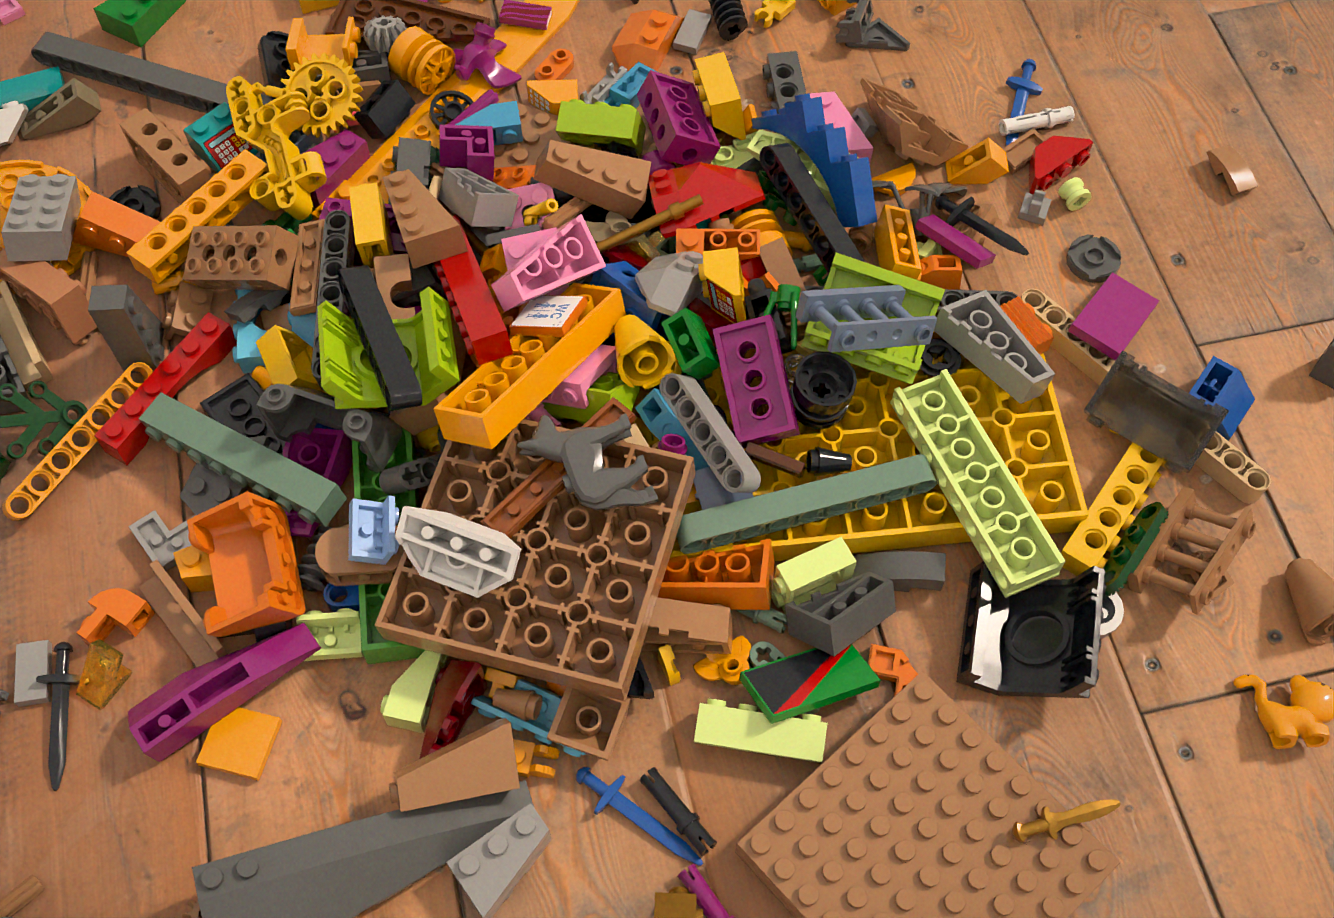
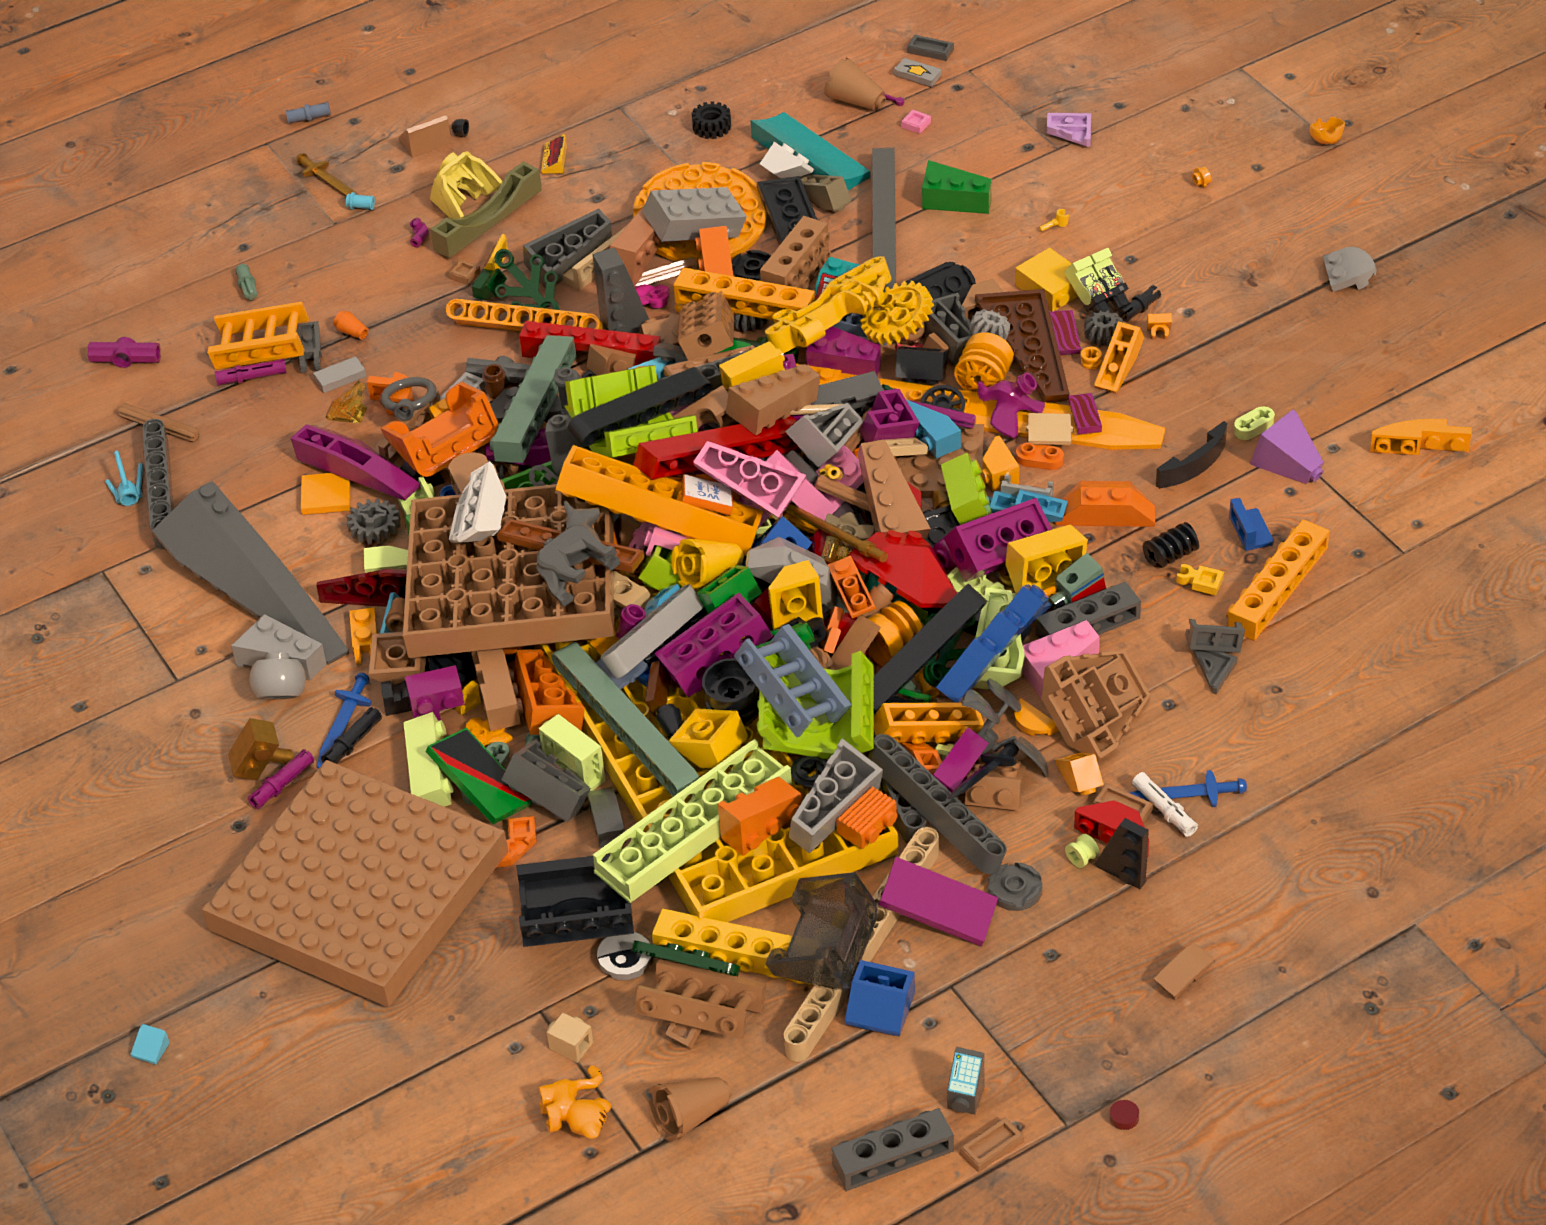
camera: 75 degrees right, 15 degrees down
(59, 712) = (336, 388): black sword -> none
(75, 147) = (785, 204): none -> black tile
(149, 489) = (513, 371): none -> dark grey piece
(167, 497) = (494, 379): none -> reddish brown cone
(174, 602) = (400, 412): none -> dark grey piece
(208, 376) = (608, 360): none -> medium nougat slope
(330, 708) = (373, 521): none -> dark grey gear
(341, 45) = (952, 295): light orange panel -> none
(372, 530) = (496, 457): light blue bracket -> none
(462, 770) = (333, 600): medium nougat slope -> none
(508, 163) = (906, 446): none -> tan tile
(529, 46) = (1049, 428): none -> tan piece
(563, 873) = (277, 677): none -> light grey wheel
(636, 739) = (395, 698): none -> black leg
(672, 703) = (434, 691): none -> magenta brick
(692, 31) = (1137, 531): light grey tile -> none
(754, 92) = (1078, 582): none -> sand green torso
(868, 430) = (709, 736): none -> yellow slope
(998, 414) = (757, 815): none -> orange wedge
(1012, 271) = (932, 802): none -> dark grey beam
(1034, 207) = (1053, 829): light grey tile -> none
(1054, 821) = (398, 930): pearl gold sword -> none
(1114, 153) = (1126, 854): none -> black wing
(1199, 689) = (569, 1037): none -> tan brick

